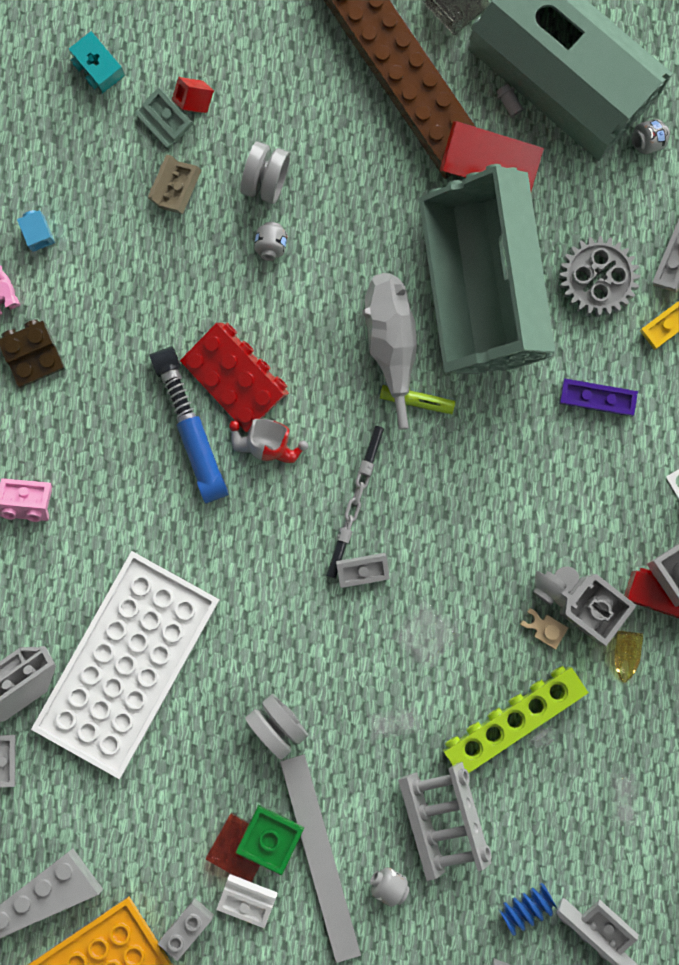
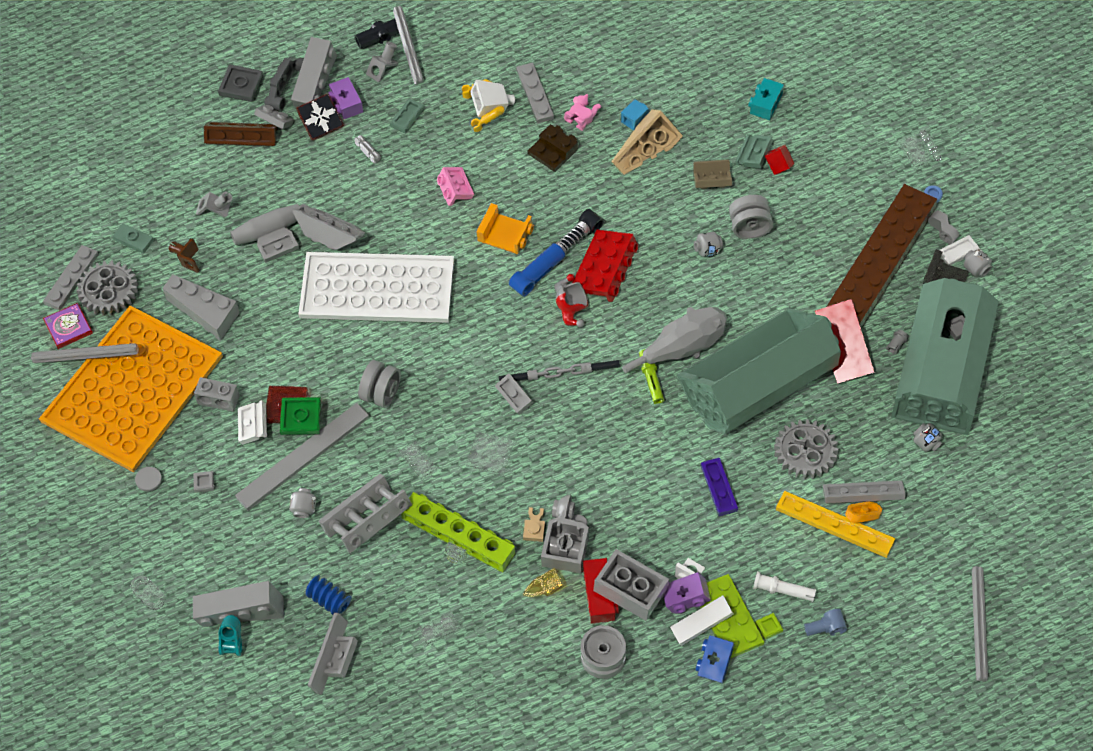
camera: 65 degrees right, 25 degrees down
(78, 229) = (649, 138): none -> tan wedge
(123, 470) = (504, 231): none -> light orange panel

